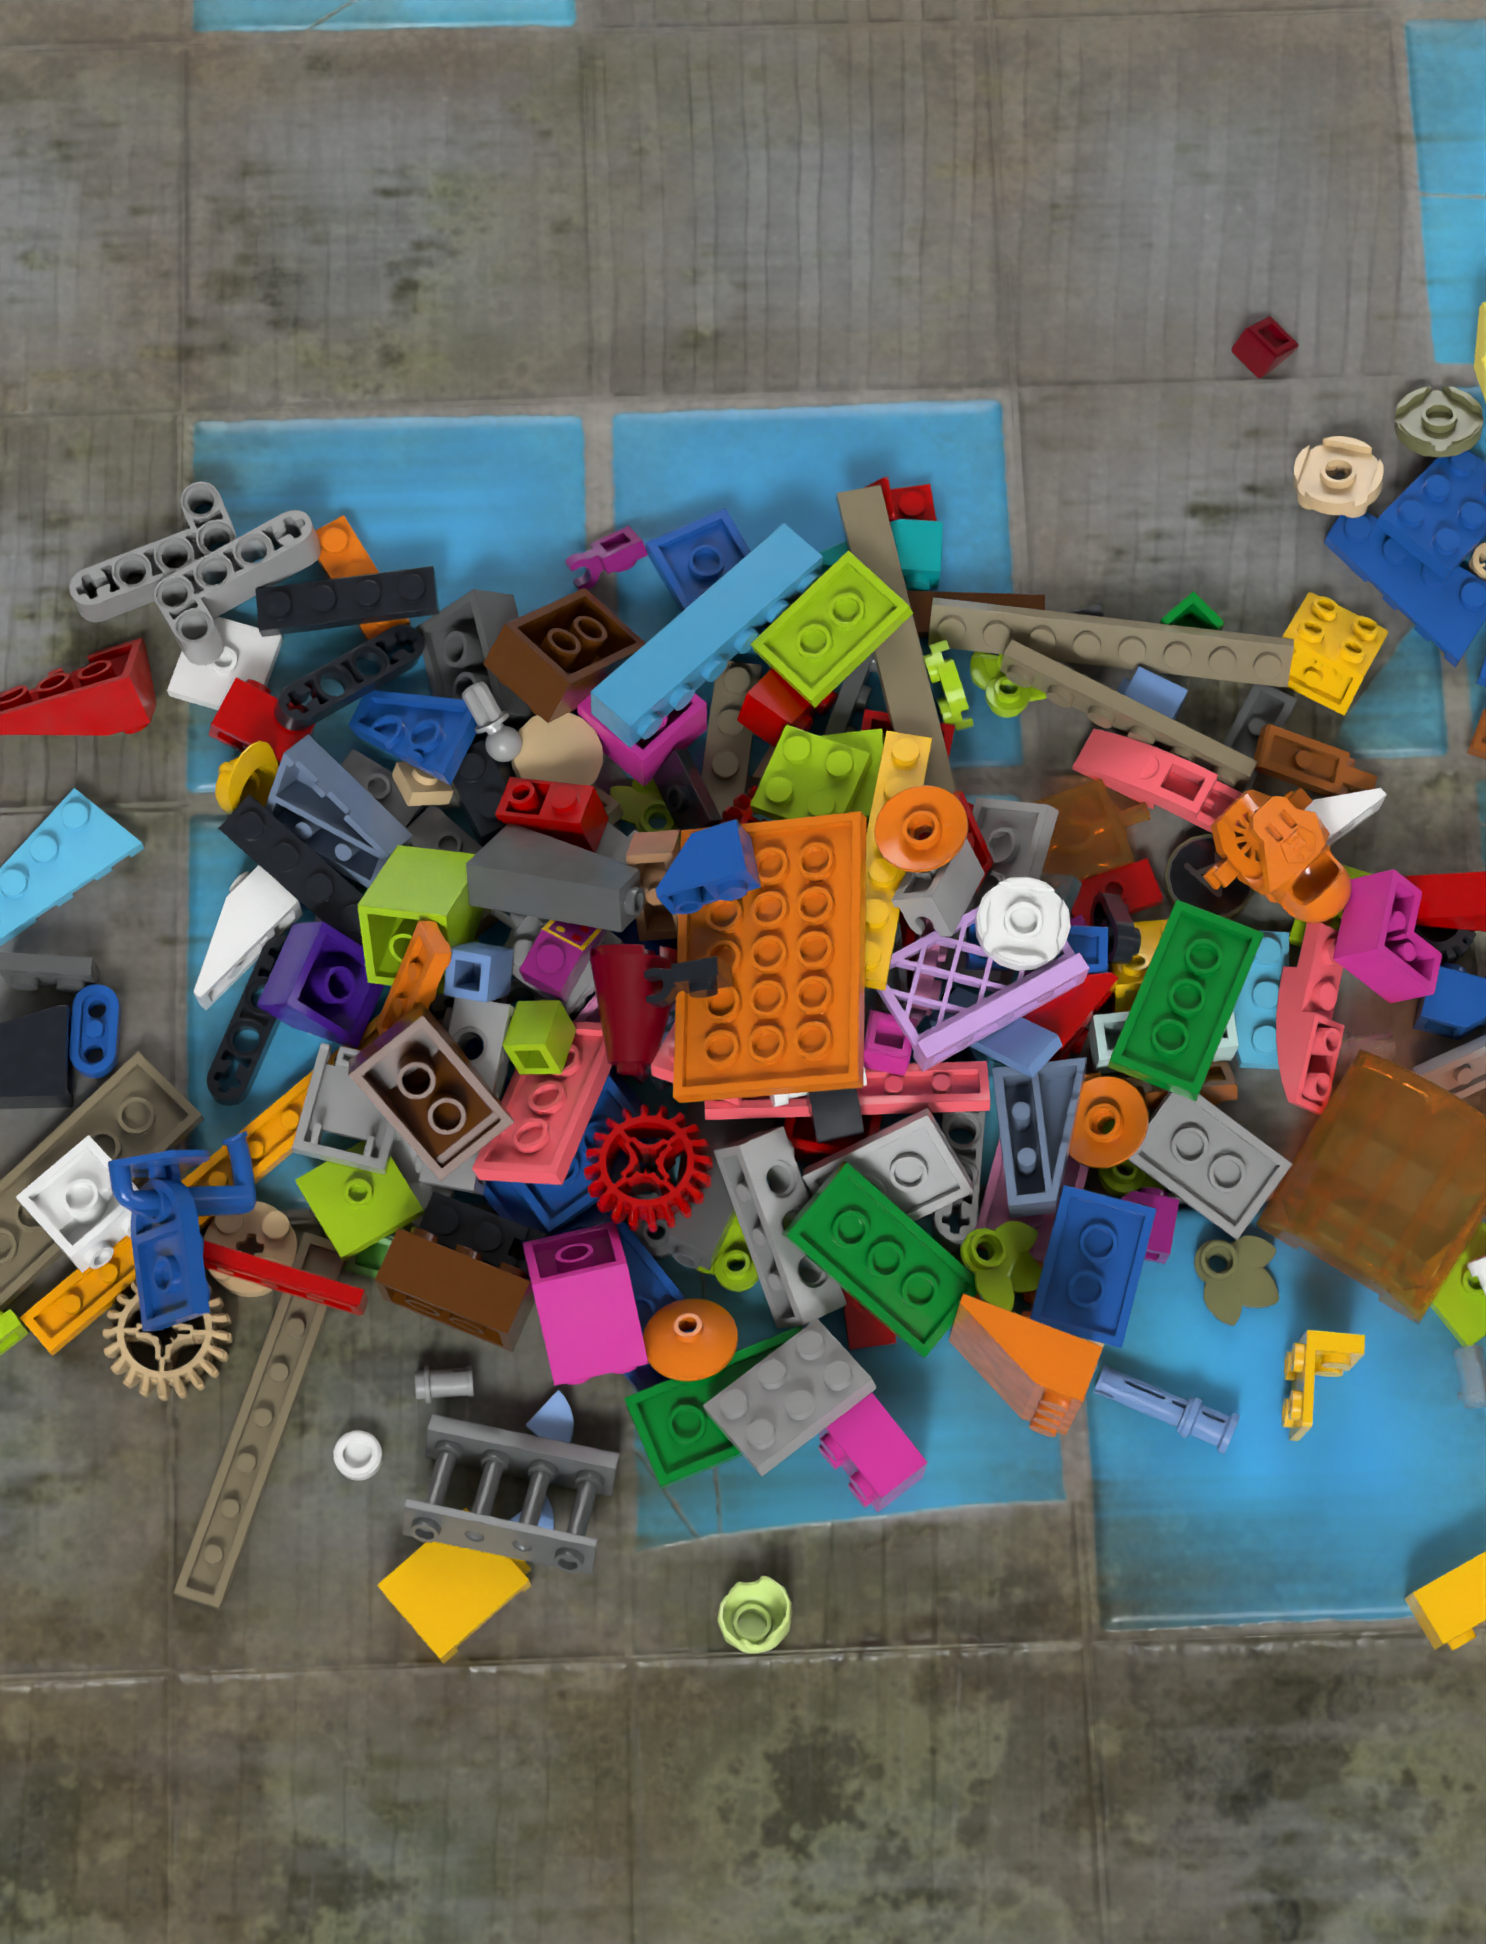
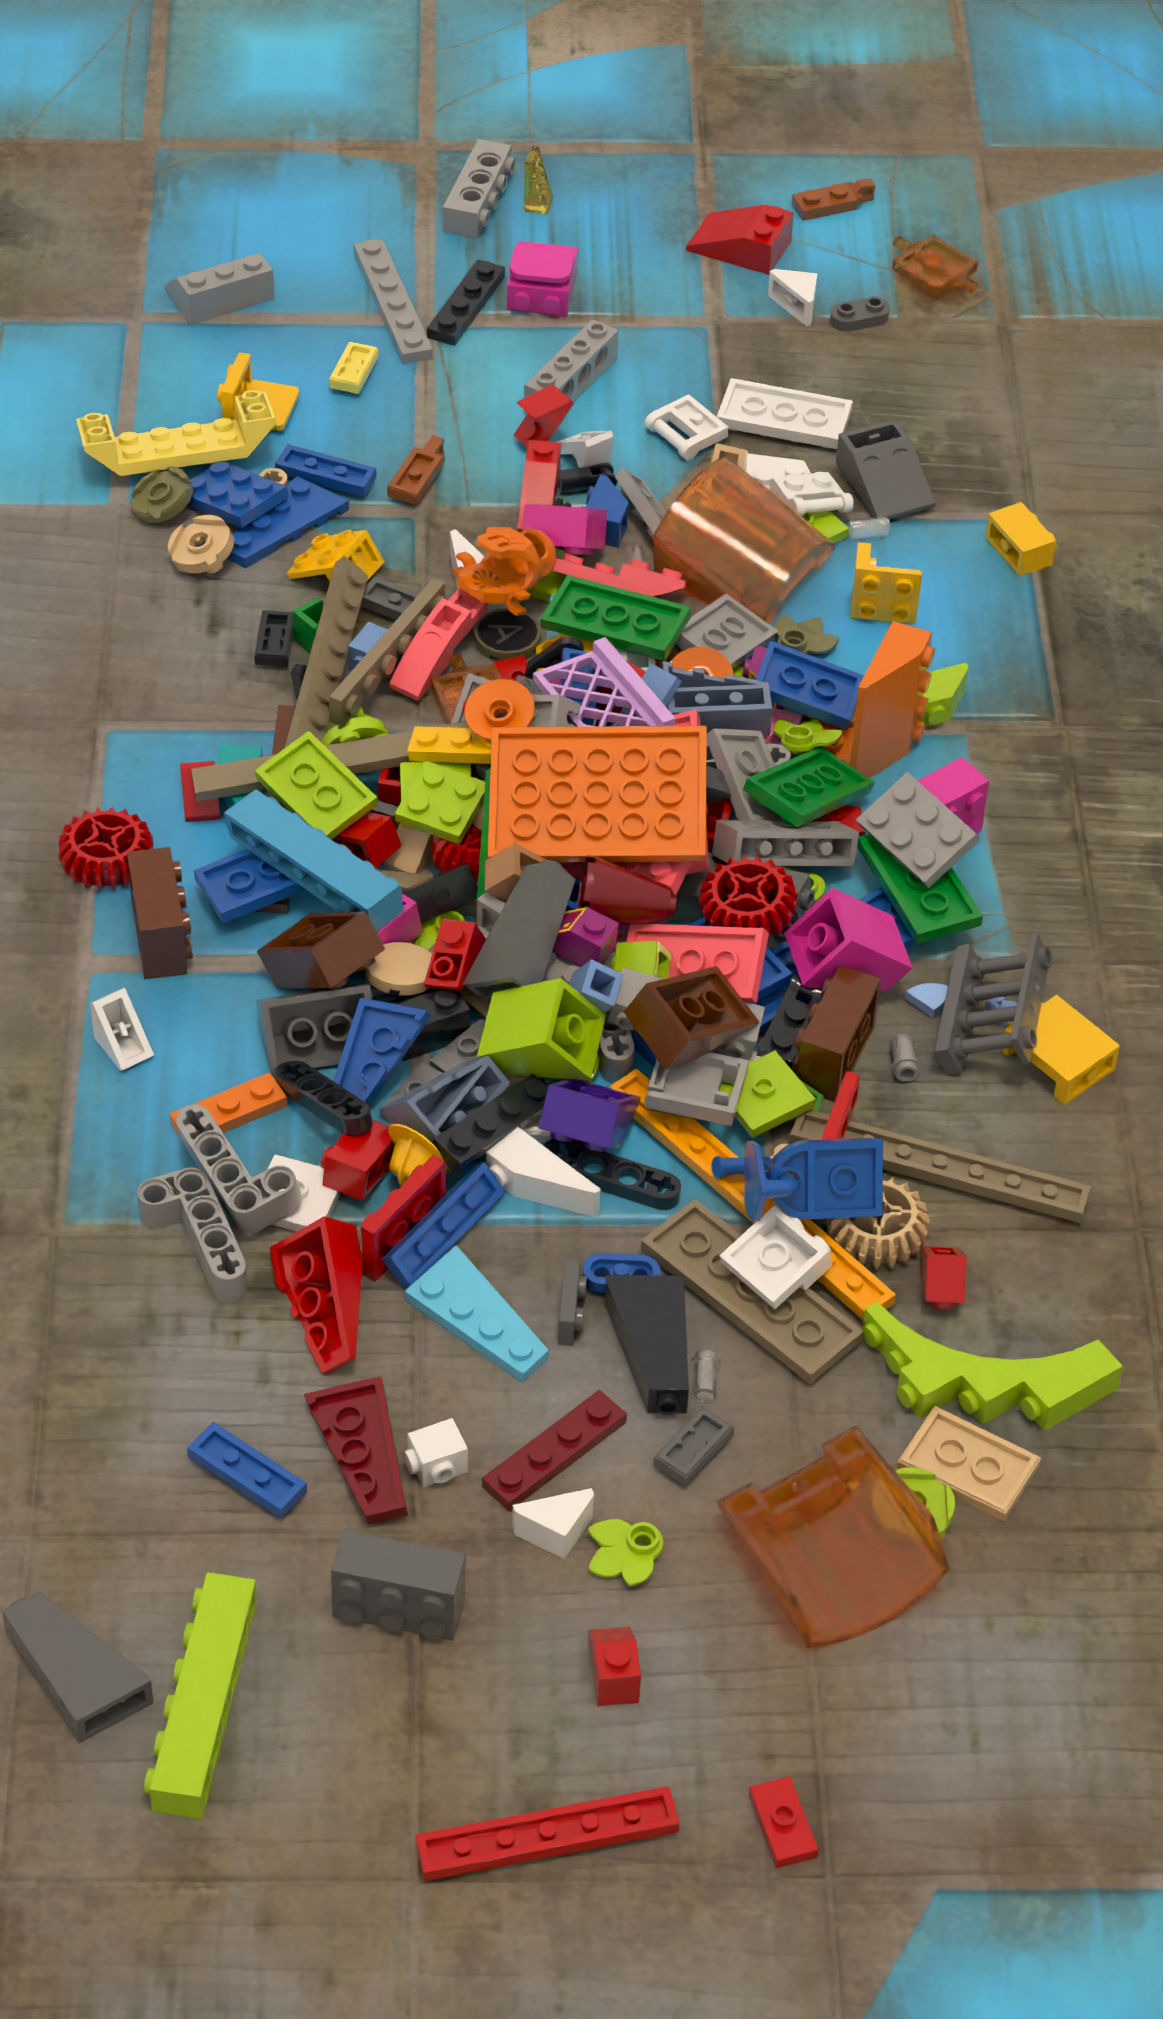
camera: 90 degrees left, 25 degrees down
(86, 1412) = (943, 1276): none -> red slope
(156, 772) = (400, 1214): none -> red plate
(167, 825) = (443, 1225): none -> blue plate
(347, 601) = (254, 1101): black plate -> none
(358, 1455) = (962, 1113): white tile -> none
(418, 974) = (608, 1025): orange plate -> none
(419, 787) = (416, 1060): tan plate -> none
(464, 450) = (119, 1030): none -> white slope
(502, 741) = (380, 988): light grey axle -> none
(611, 553) = (220, 944): magenta plate -> none
(642, 469) = (158, 912): none -> reddish brown brick
(695, 1353) = (877, 889): orange dish -> none
(697, 978) = (618, 825): black plate -> none
(710, 868) = (527, 818): blue slope -> none
(755, 1615) = (1067, 879): yellowish green hair -> none
(795, 388) = (97, 846): none -> red gear
(1010, 930) = (558, 675): white tile -> none
(1117, 1456) = (945, 693): none -> lime slope
(1171, 581) = (274, 638): none -> black plate
(1264, 346) = (85, 585): dark red slope -> none
(1309, 763) = (425, 567): dark orange hinge -> none

